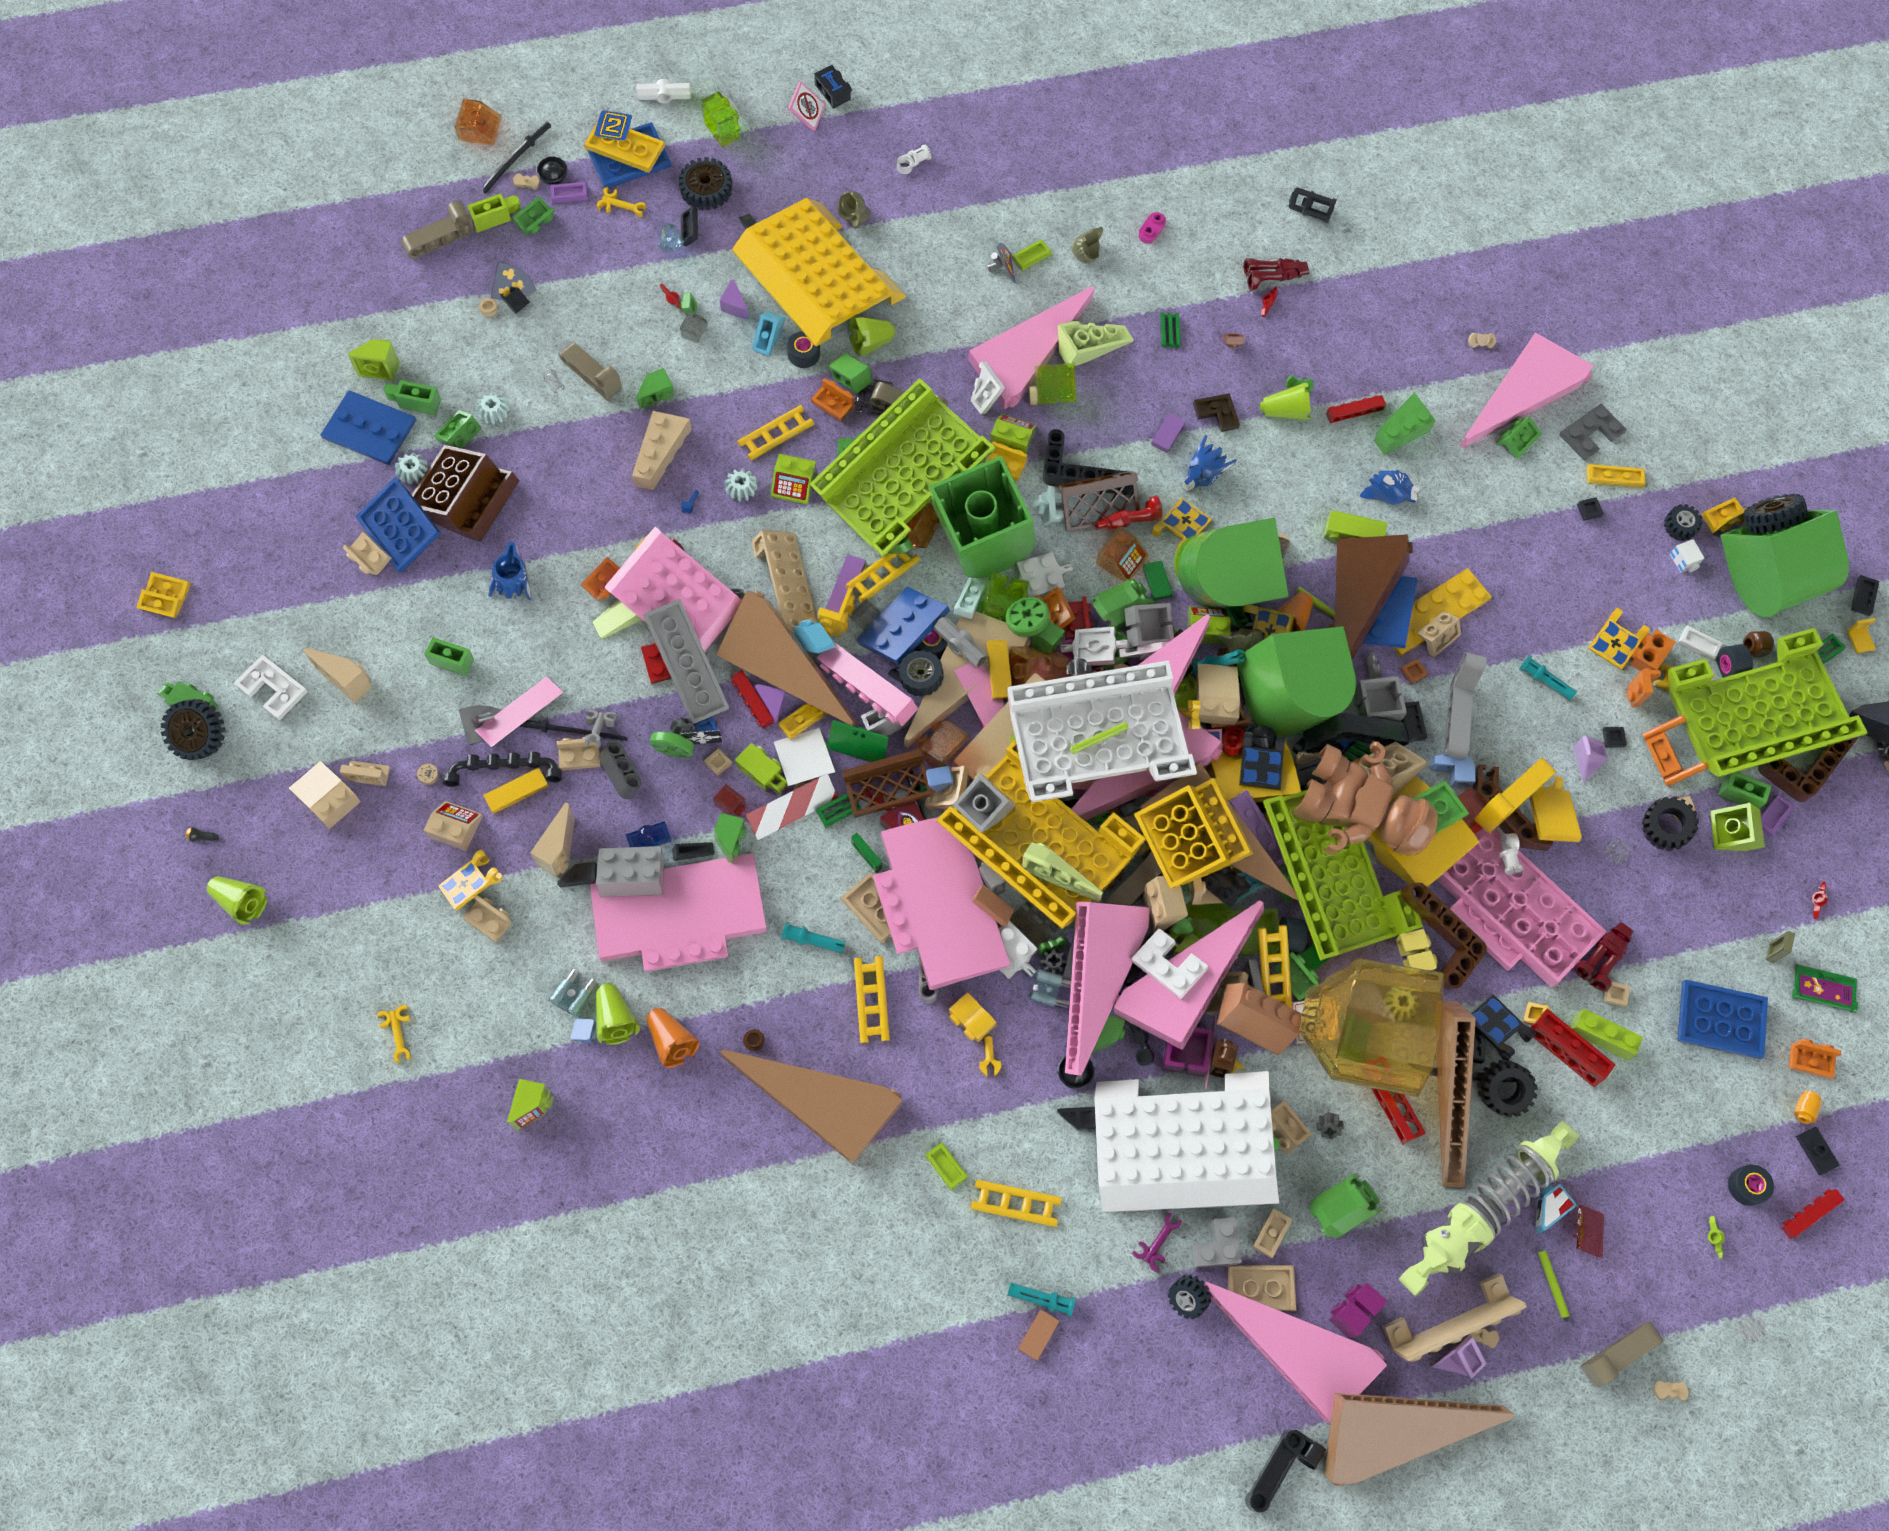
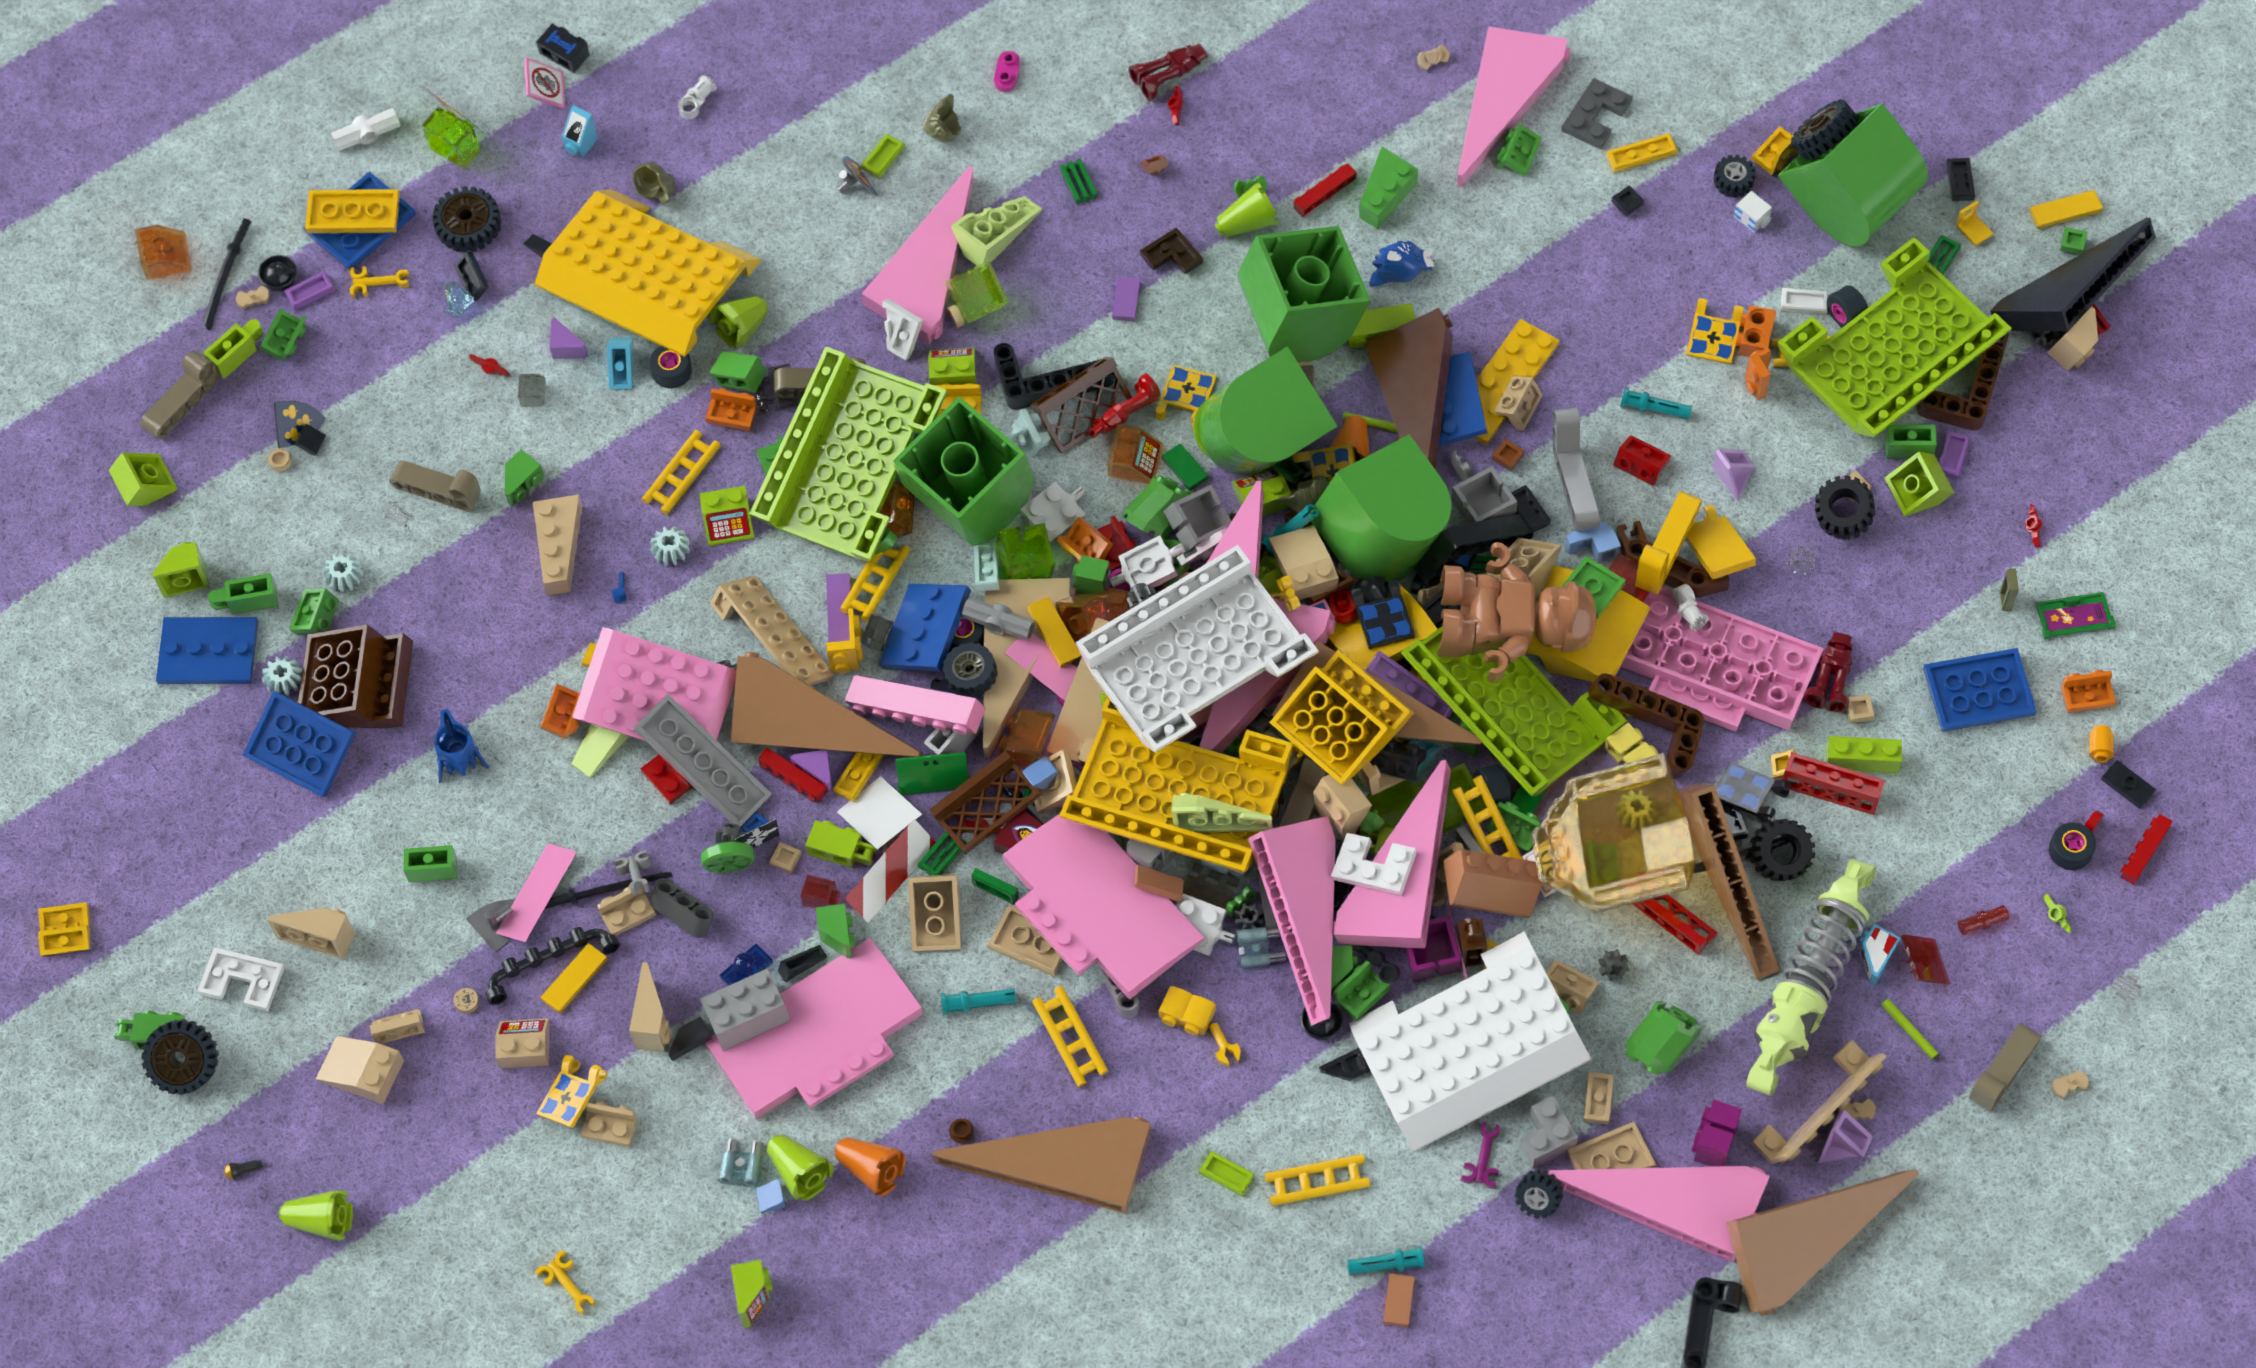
camera: 15 degrees left, 5 degrees down
(367, 554) = (280, 790): tan bracket -> none
(383, 281) = (142, 478): none -> lime slope
(613, 125) = (329, 193): sticker -> none
(689, 303) = (513, 365): bright green plate -> none
(811, 853) = (935, 912): none -> tan slope
(813, 636) = (832, 678): medium azure slope -> none
(815, 151) = (579, 132): none -> medium azure slope
(984, 803) = (1103, 777): light grey slope -> none
(1032, 625) = (1054, 552): bright green wheel -> none
(1099, 737) = (1198, 656): lime bar -> none
(1116, 1060) = (1360, 991): none -> bright green bracket
(1206, 464) = (1183, 318): blue piece -> none
(1307, 479) = (1303, 291): none -> bright green brick
(1519, 718) = (1641, 460): none -> red bracket
(1614, 737) = (1751, 439): black tile -> none
(1651, 1216) = (1983, 920): none -> clear red pin
(1665, 755) = (1814, 438): orange plate -> none
(1759, 643) = (1866, 277): reddish brown head -> none
(1778, 1170) = (2094, 820): none -> red tile

